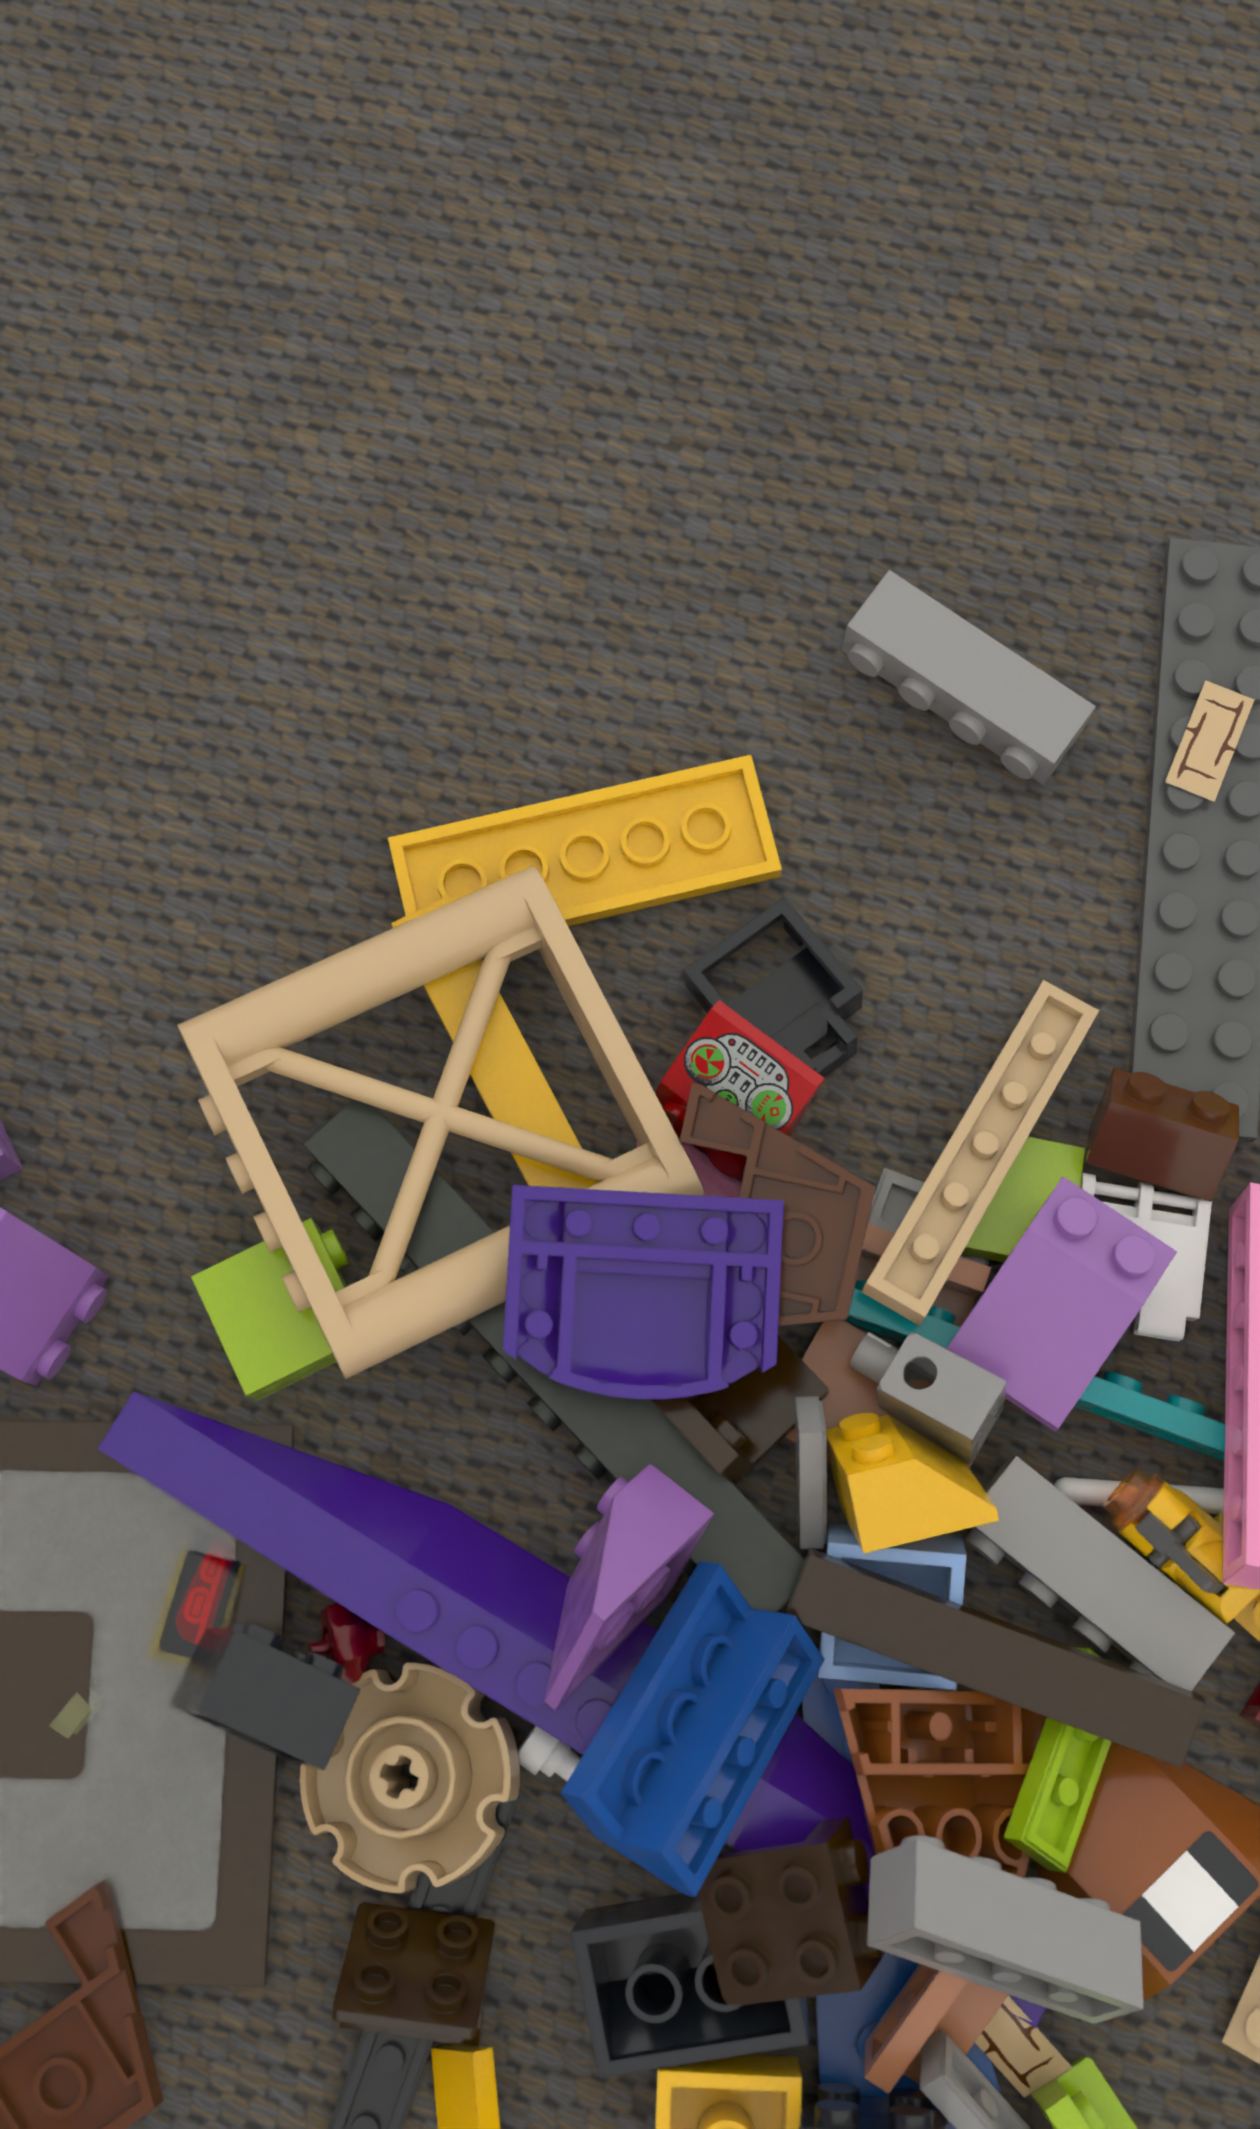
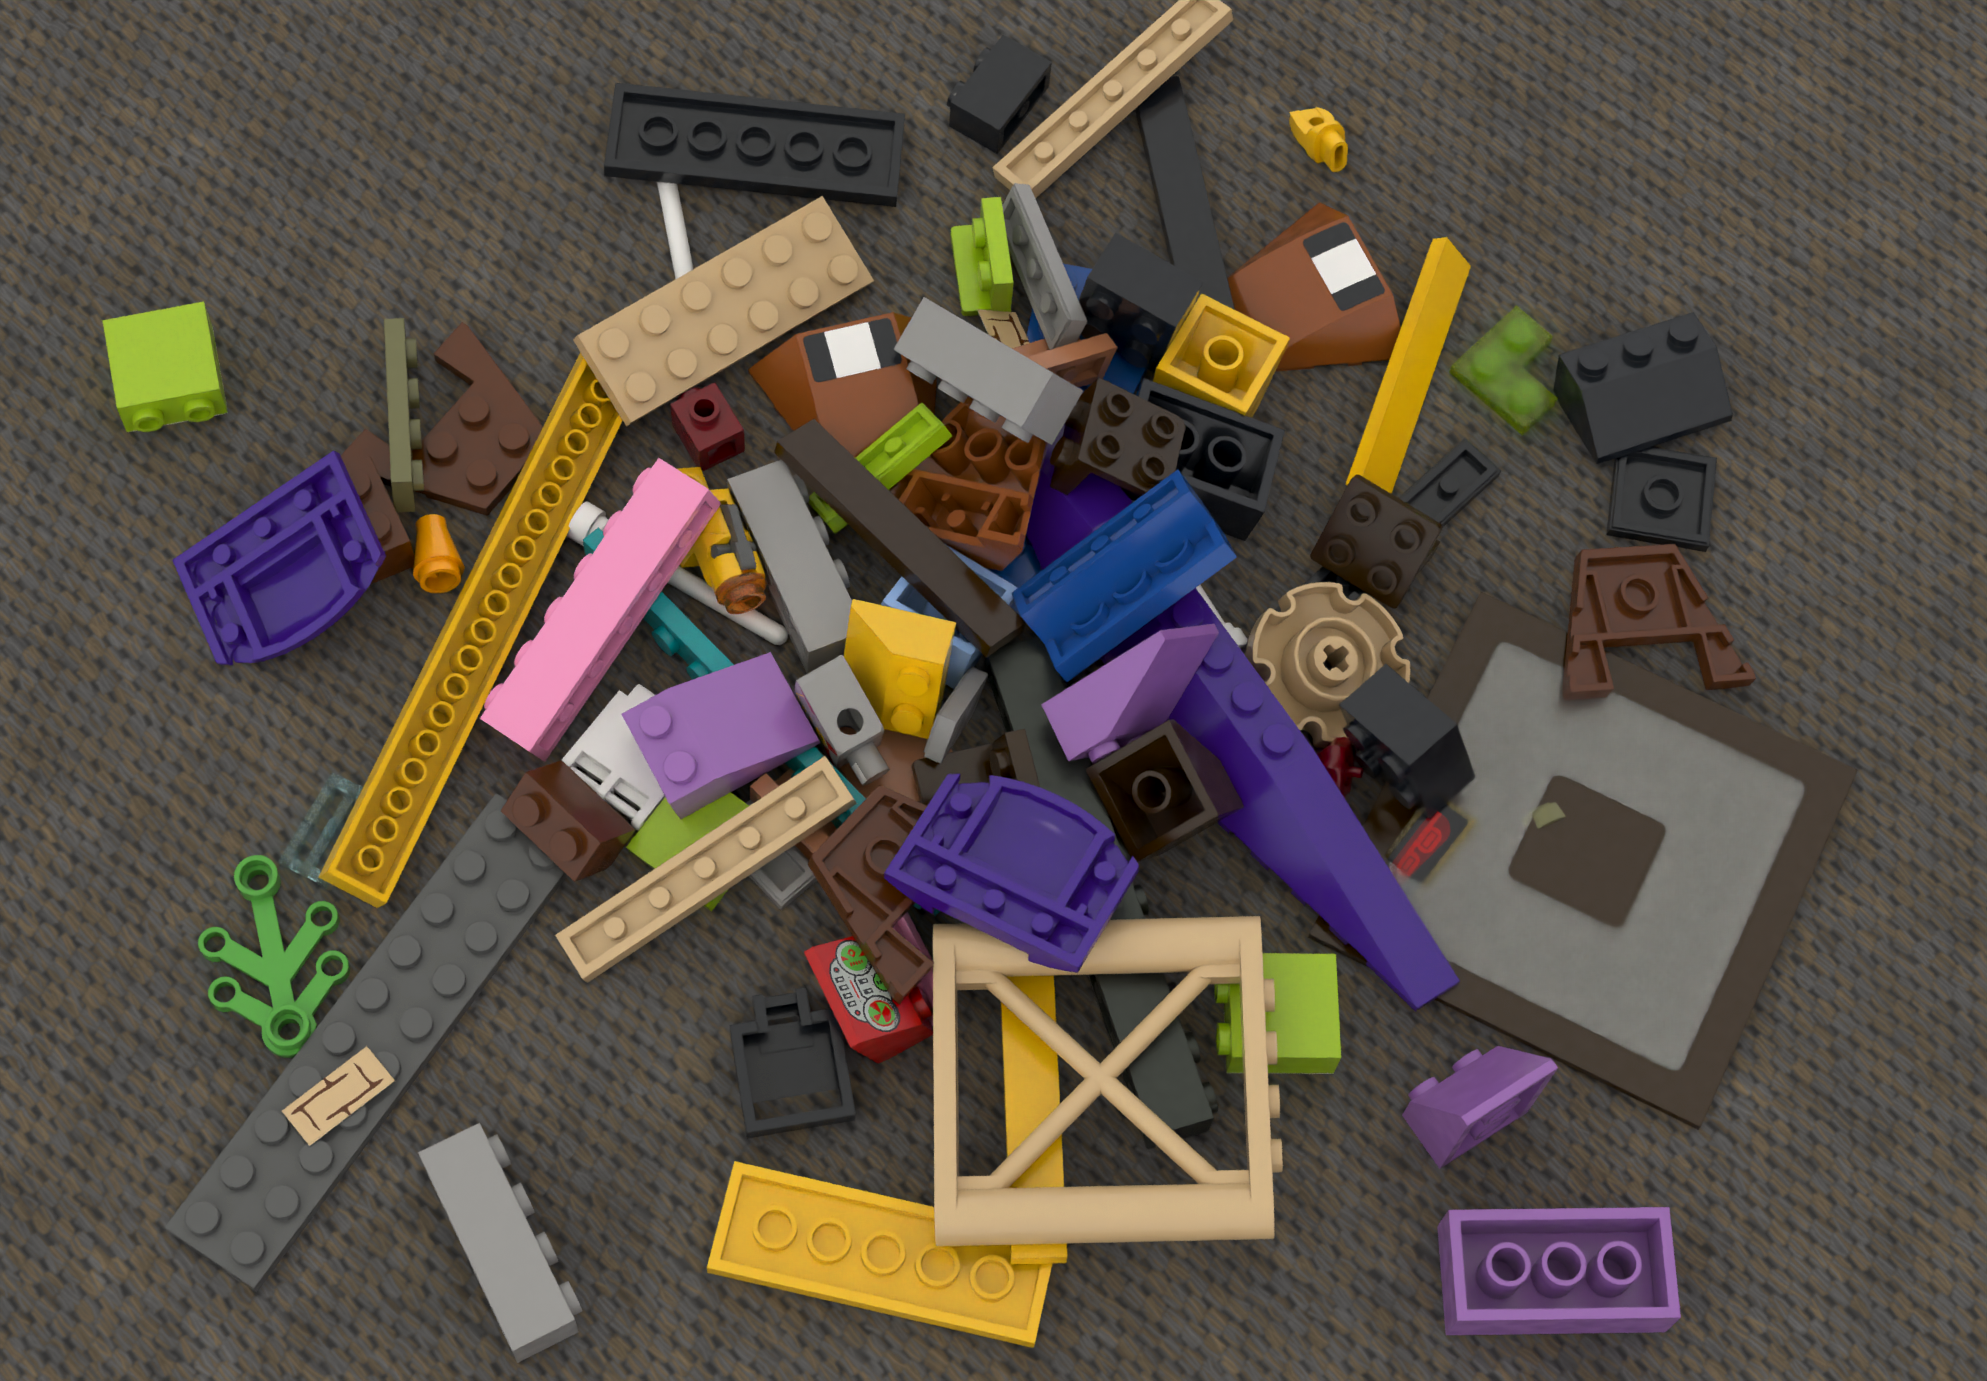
camera: 160 degrees left, 10 degrees down
(519, 1485) = (1163, 790): none -> dark brown slope

